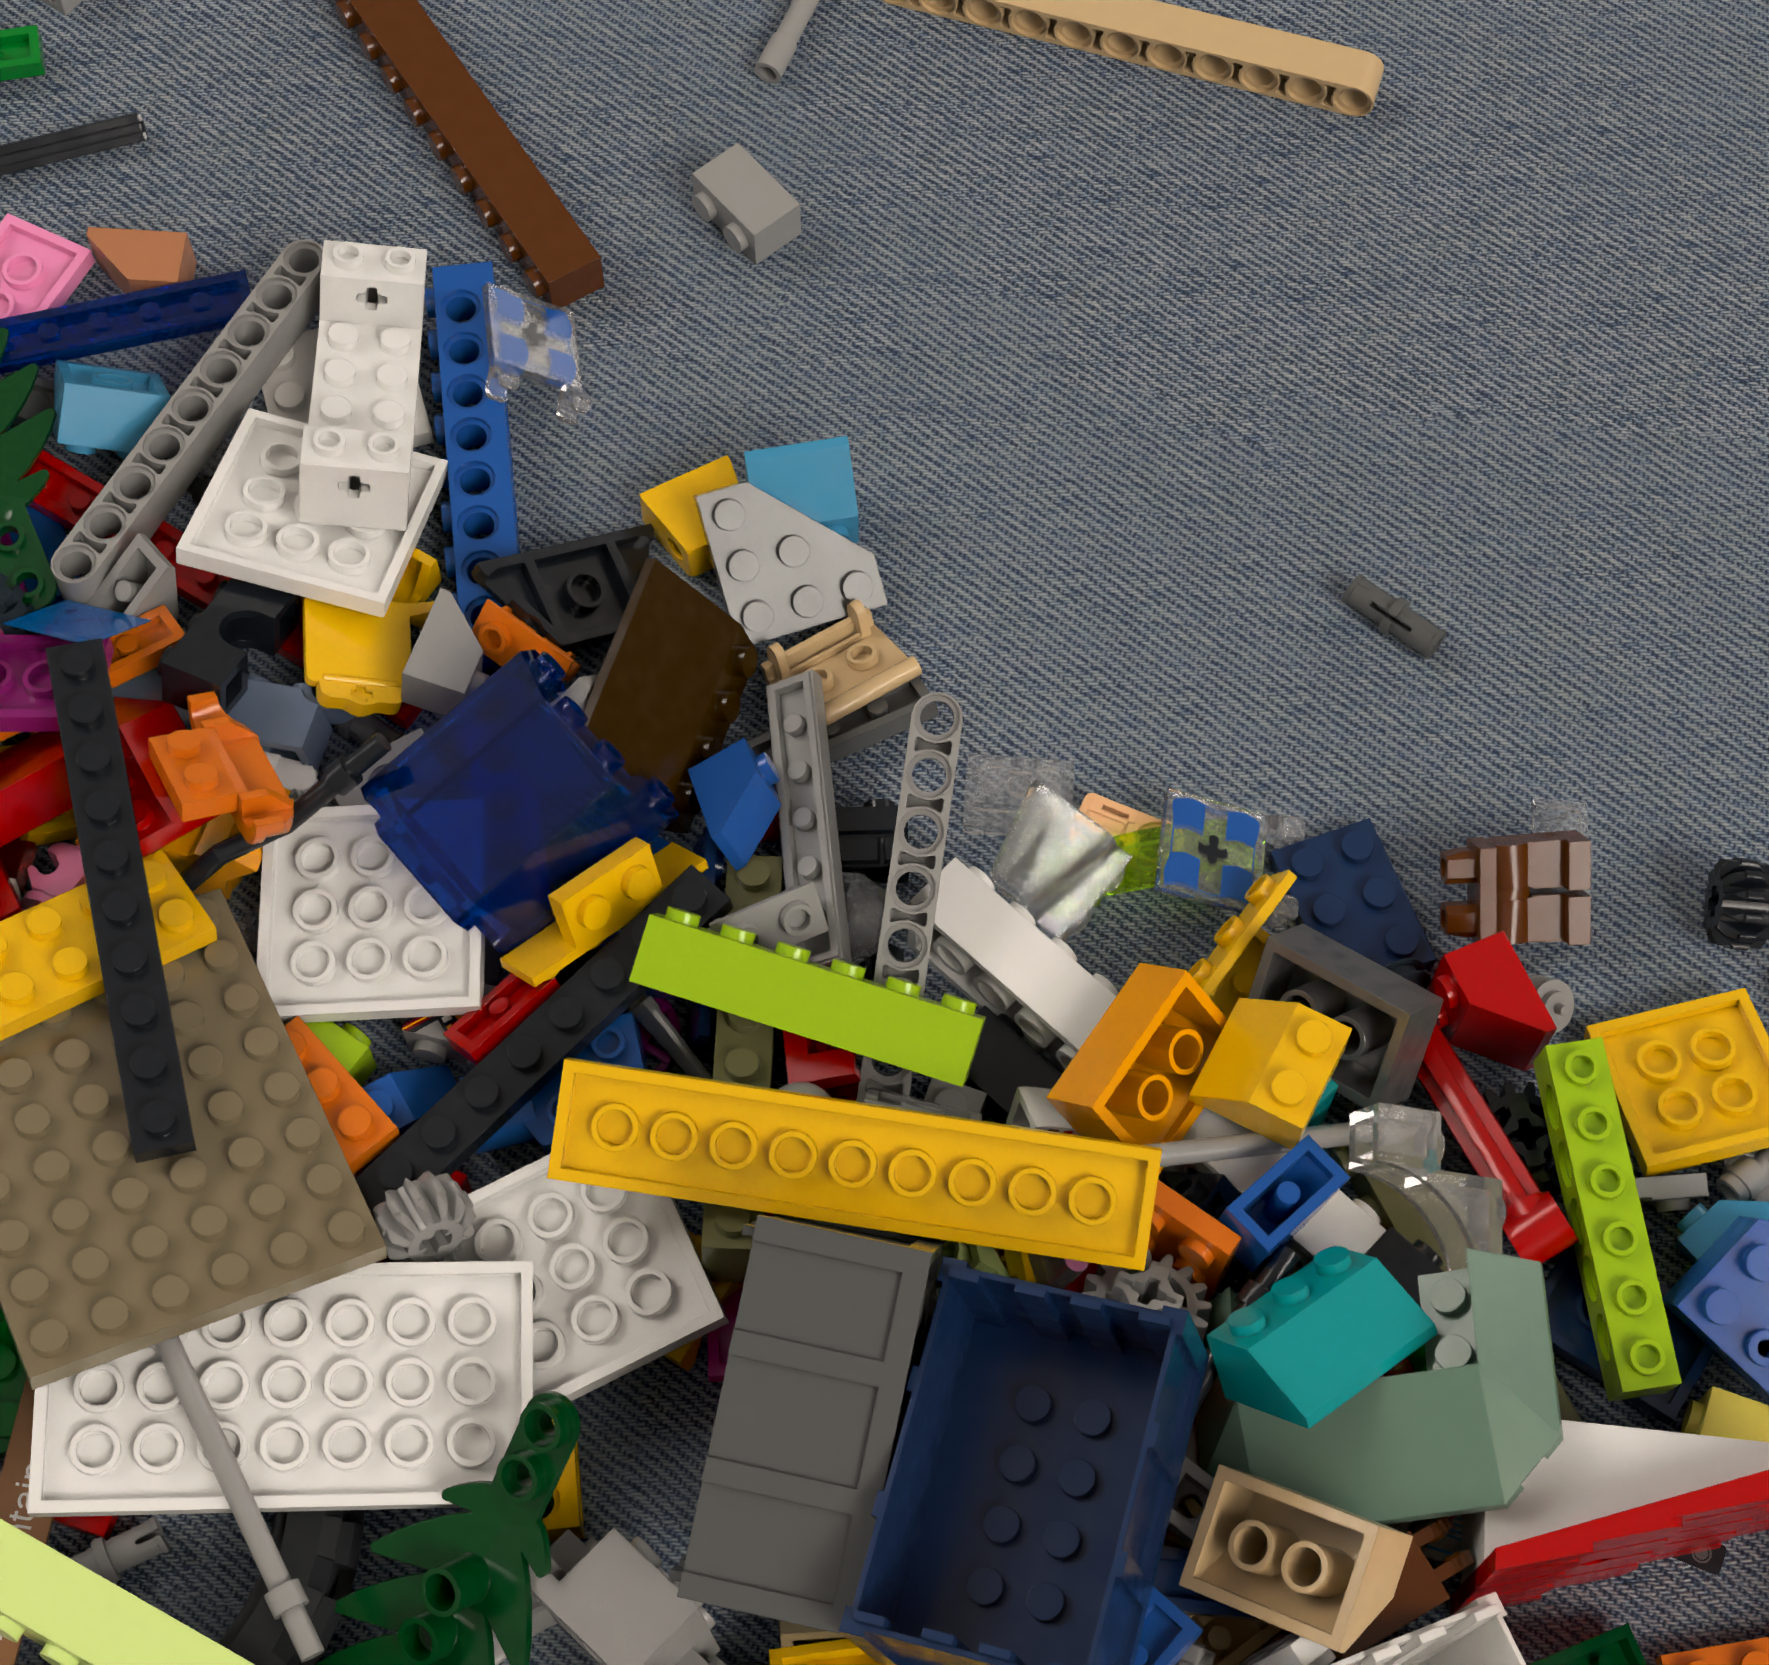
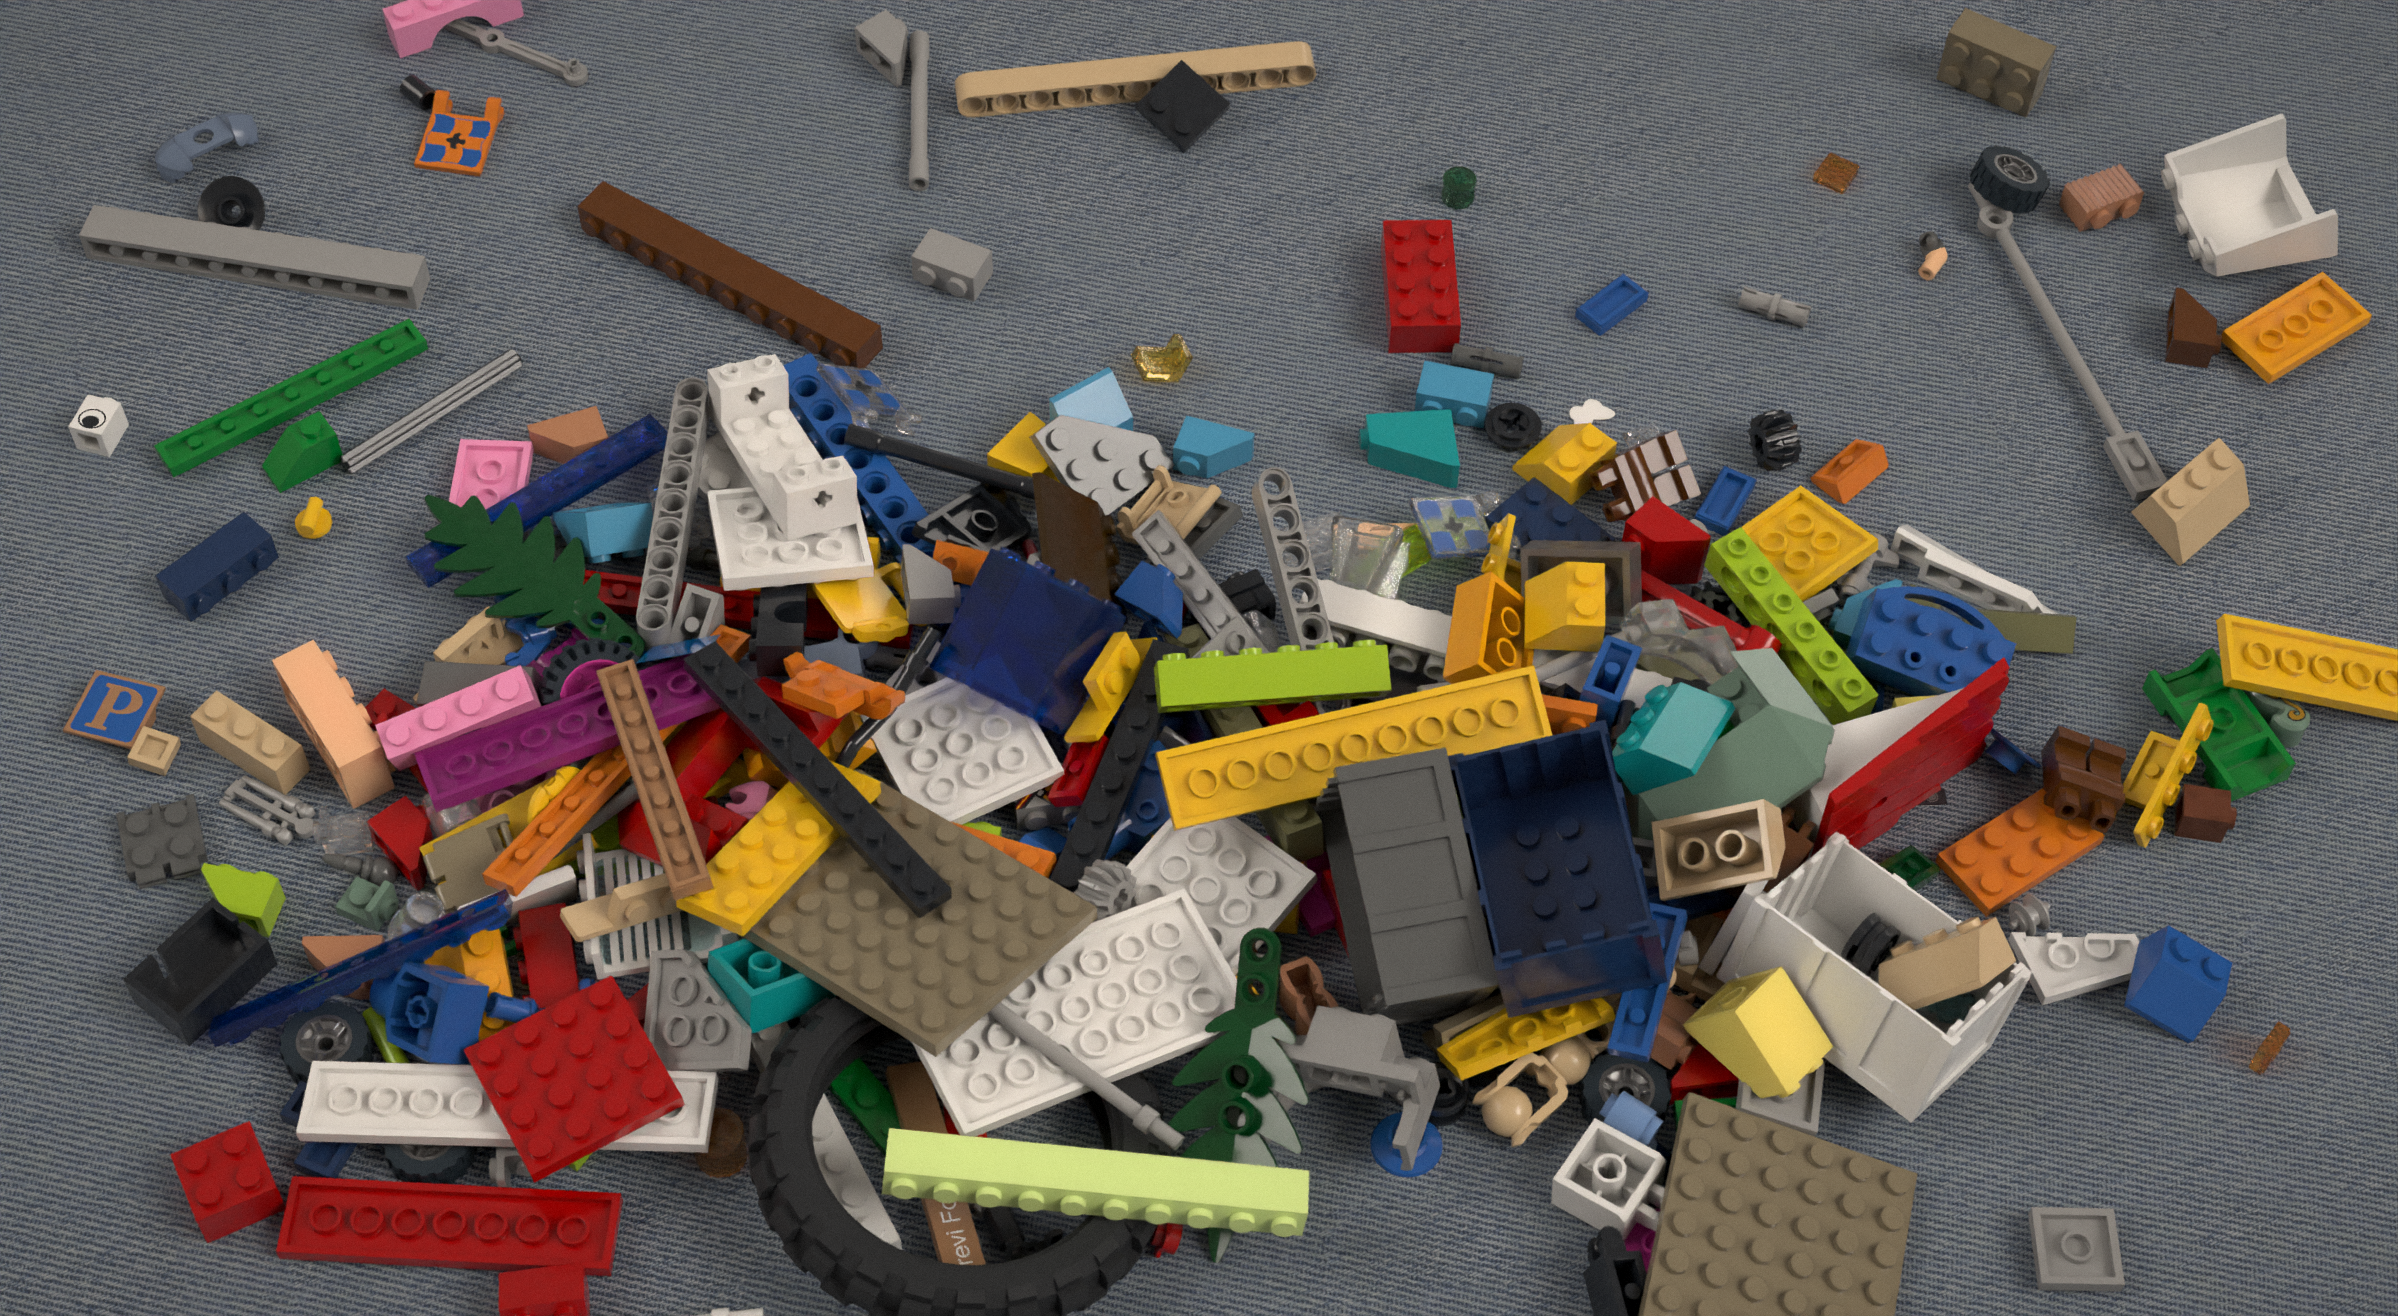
camera: 25 degrees left, 10 degrees down
(501, 424) = (878, 443): none -> black piece
(641, 1479) = (1302, 992): none -> nougat brick
(944, 599) = (1210, 448): none -> dark azure slope
(947, 448) = (1163, 363): none -> clear yellow bracket
(1165, 89) = (1182, 106): none -> black plate
(1224, 702) = (1413, 444): none -> teal slope
(1318, 651) = (1455, 388): none -> dark azure brick
(1353, 471) = (1420, 286): none -> red brick
(1381, 709) = (1505, 416): none -> black gear
(1427, 811) = (1567, 459): none -> yellow slope
(1490, 355) = (1458, 187): none -> clear green wheel
(1505, 747) = (1589, 411): none -> white sticker
(1614, 599) = (1611, 304): none -> blue tile
(1626, 963) = (1725, 500): none -> blue tile

